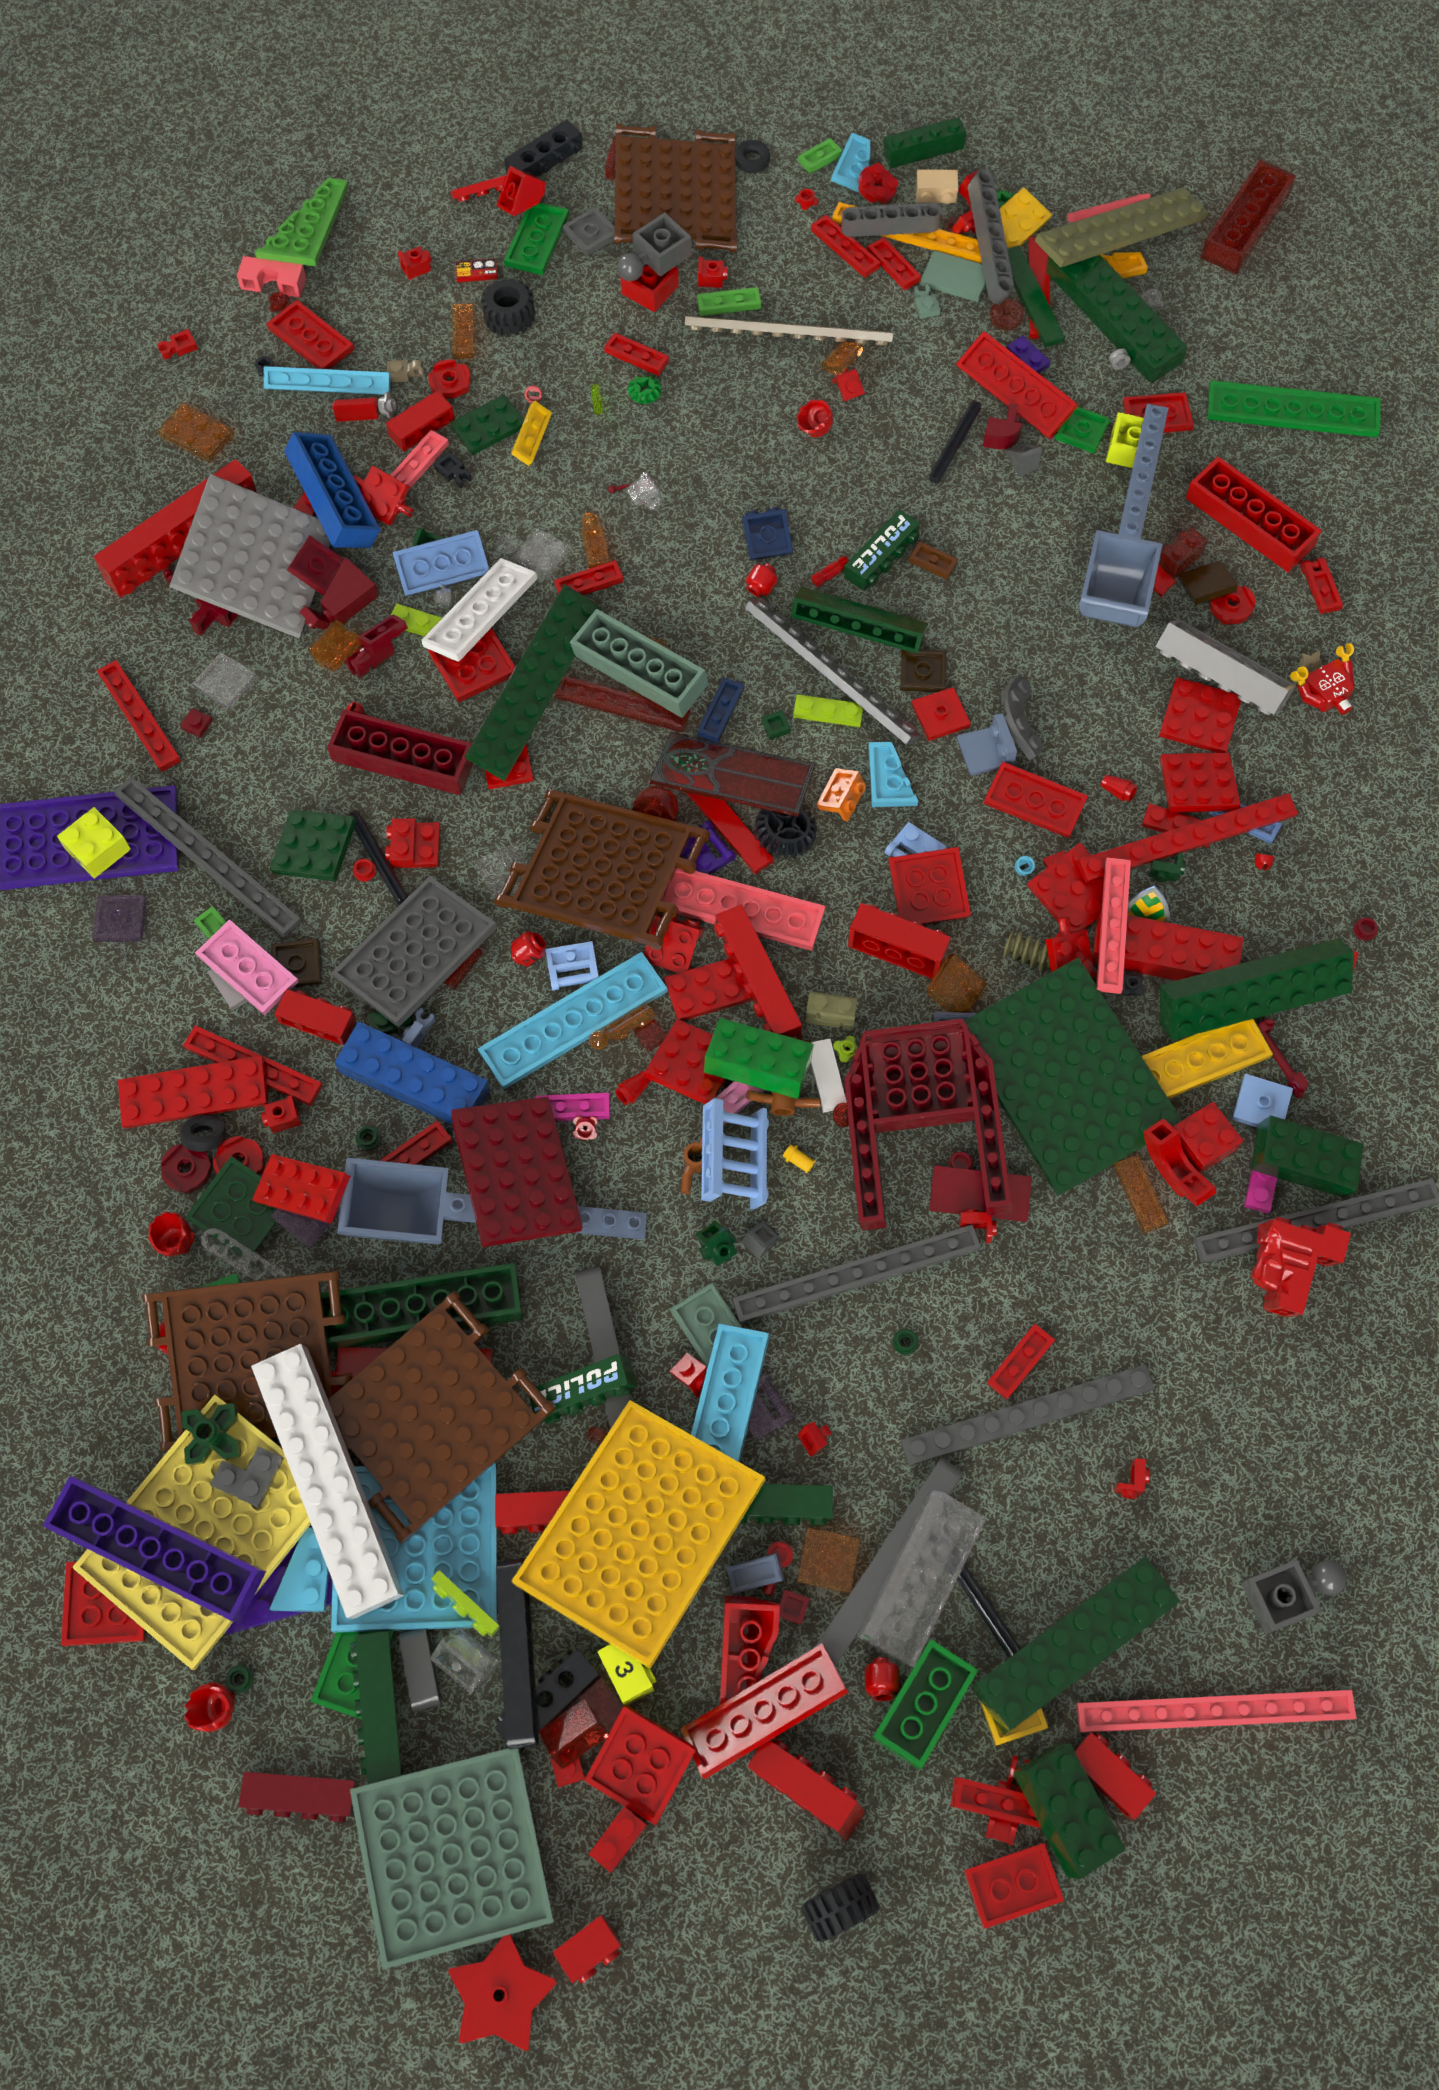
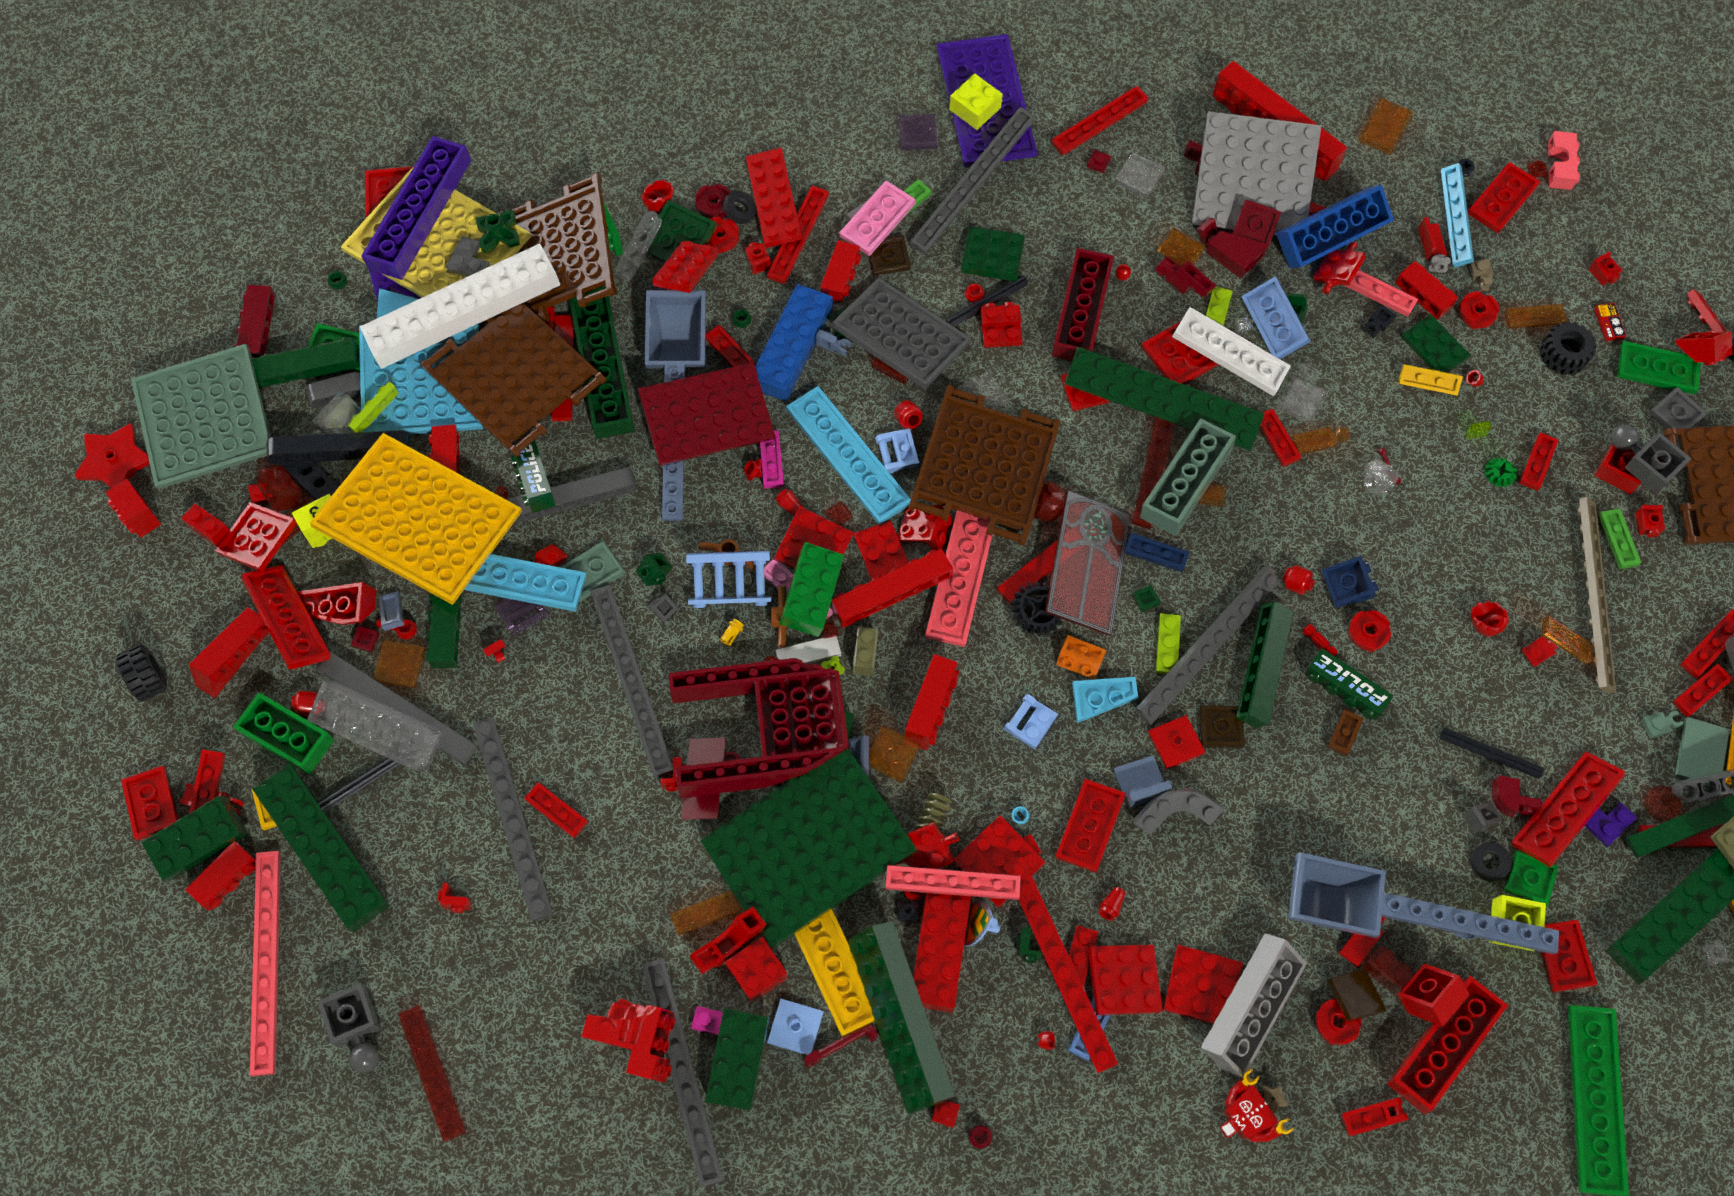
camera: 85 degrees right, 0 degrees up
(180, 343) = (1474, 102): red plate -> none
(209, 1707) = (316, 262): red hair -> none
(307, 230) = (1623, 180): bright green wing -> none
(621, 1027) = (843, 491): clear orange plate -> none
(707, 862) = (1004, 548): dark purple plate -> none
(816, 535) = (1367, 641): none -> red plate
(908, 1334) = (570, 715): dark green plate -> none
(930, 886) = (989, 730): red plate -> none
(1063, 468) = (1497, 850): none -> black tyre
(1119, 359) = (1626, 915): light grey bush -> none
(1213, 511) = (1433, 994): none -> red brick
(1337, 1499) = (432, 1074): none -> clear red plate

